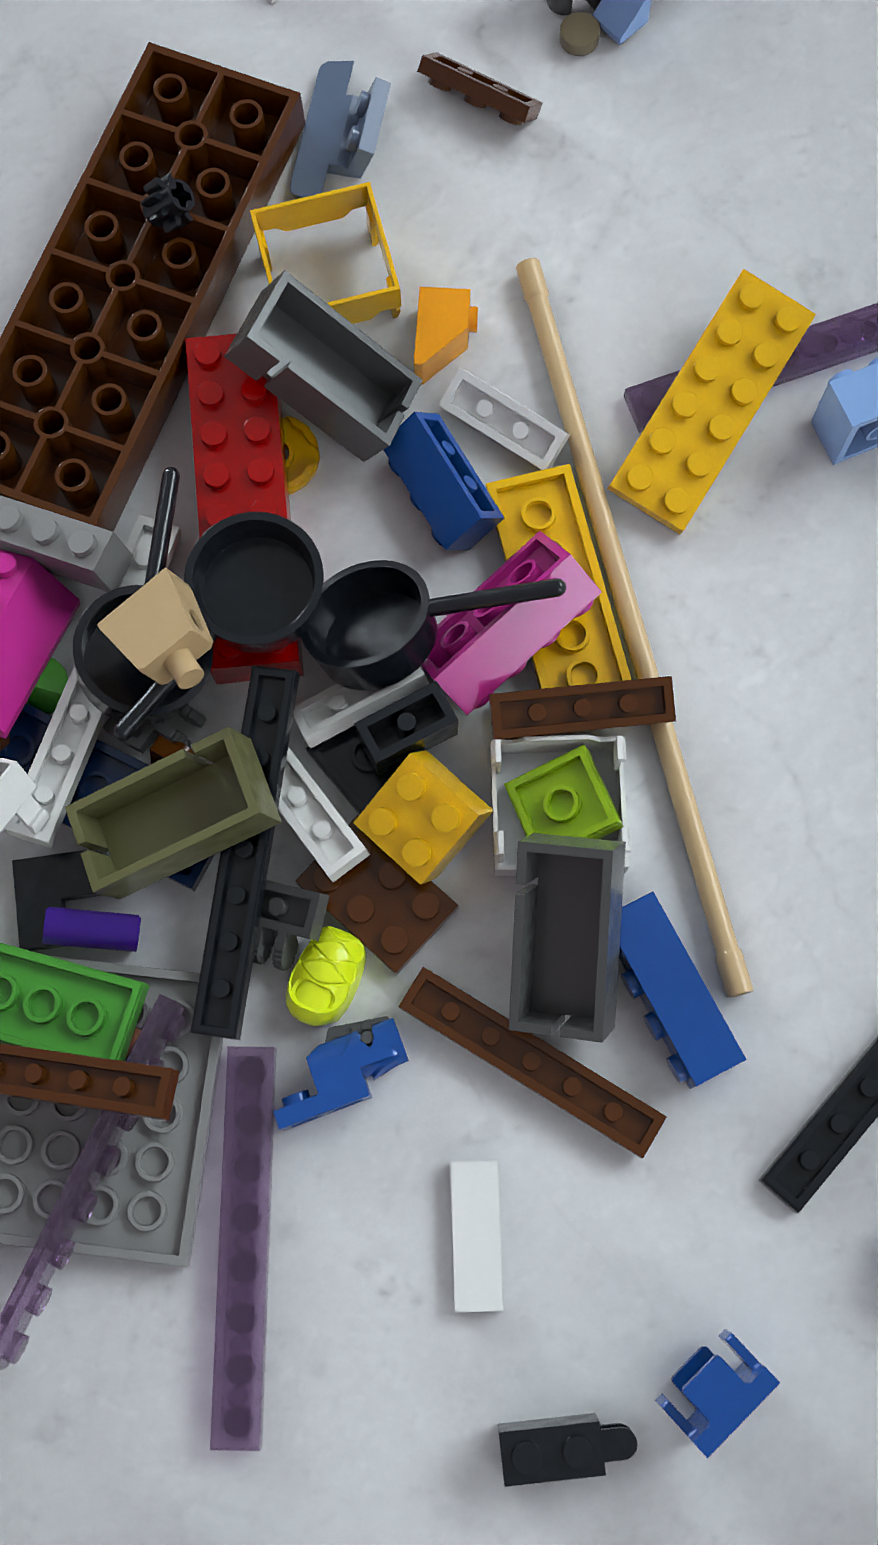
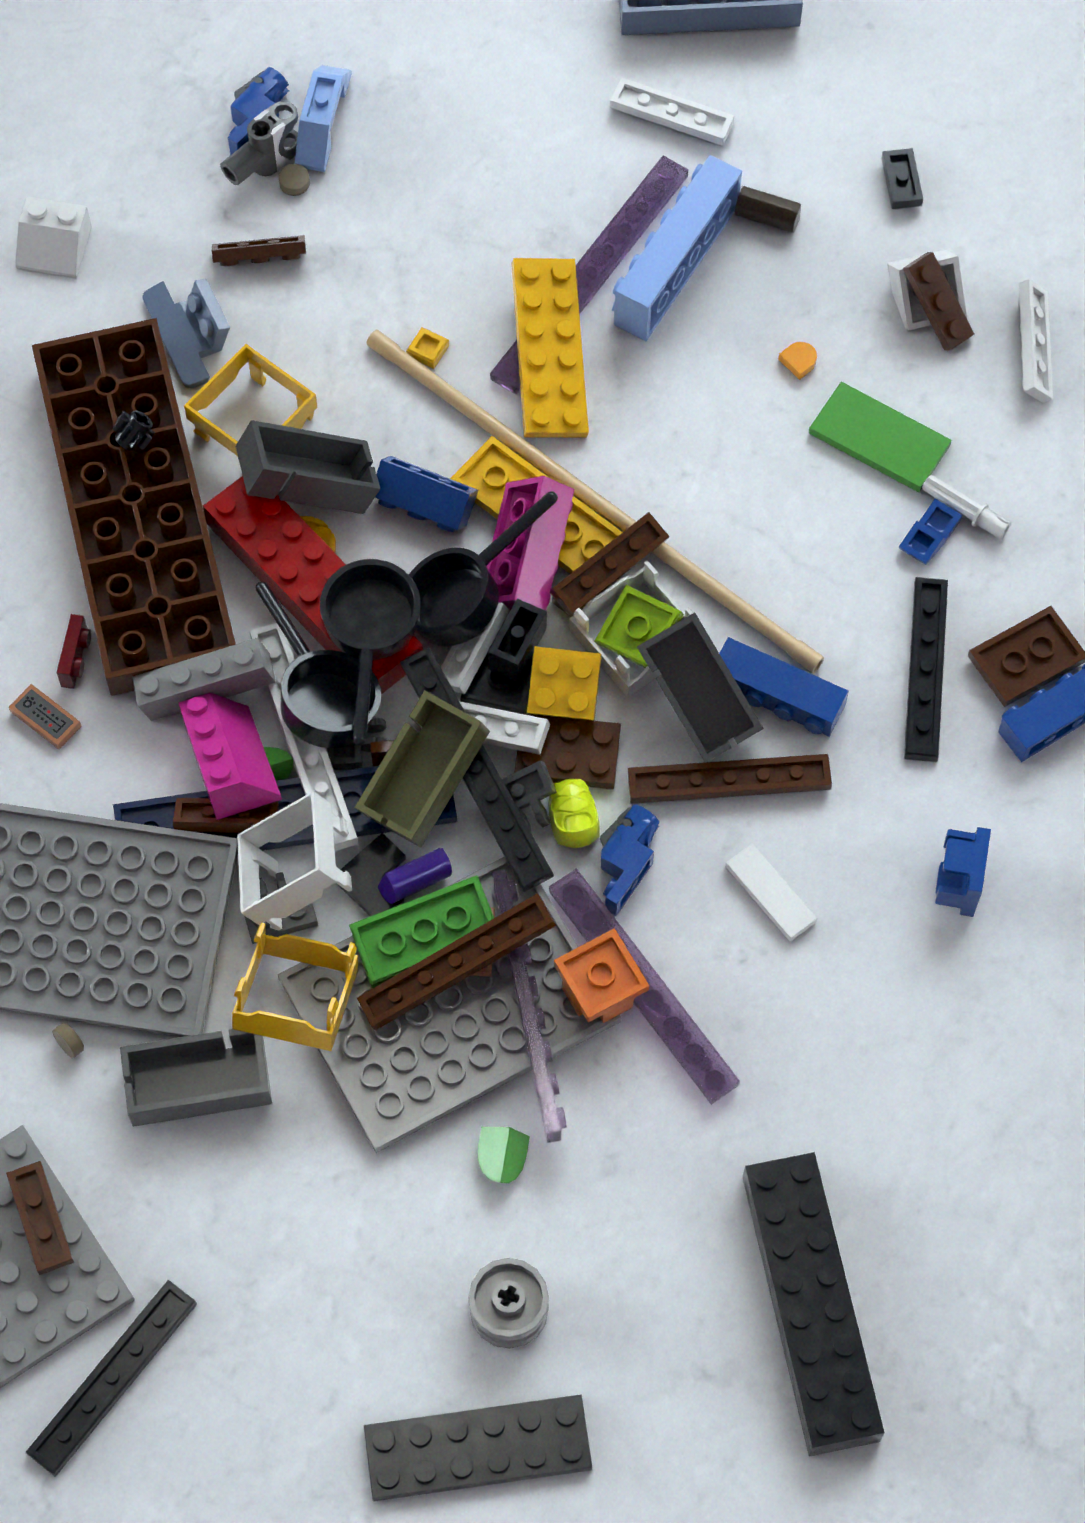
camera: 40 degrees left, 10 degrees down
(161, 631) = (344, 664): tan torso -> none
(185, 1213) = (601, 977): none -> orange panel
(442, 328) = (349, 404): light orange slope -> none
(503, 419) = (431, 435): white plate -> none
(561, 1448) = (902, 962): black brick -> none
(580, 315) = (428, 347): none -> yellow tile

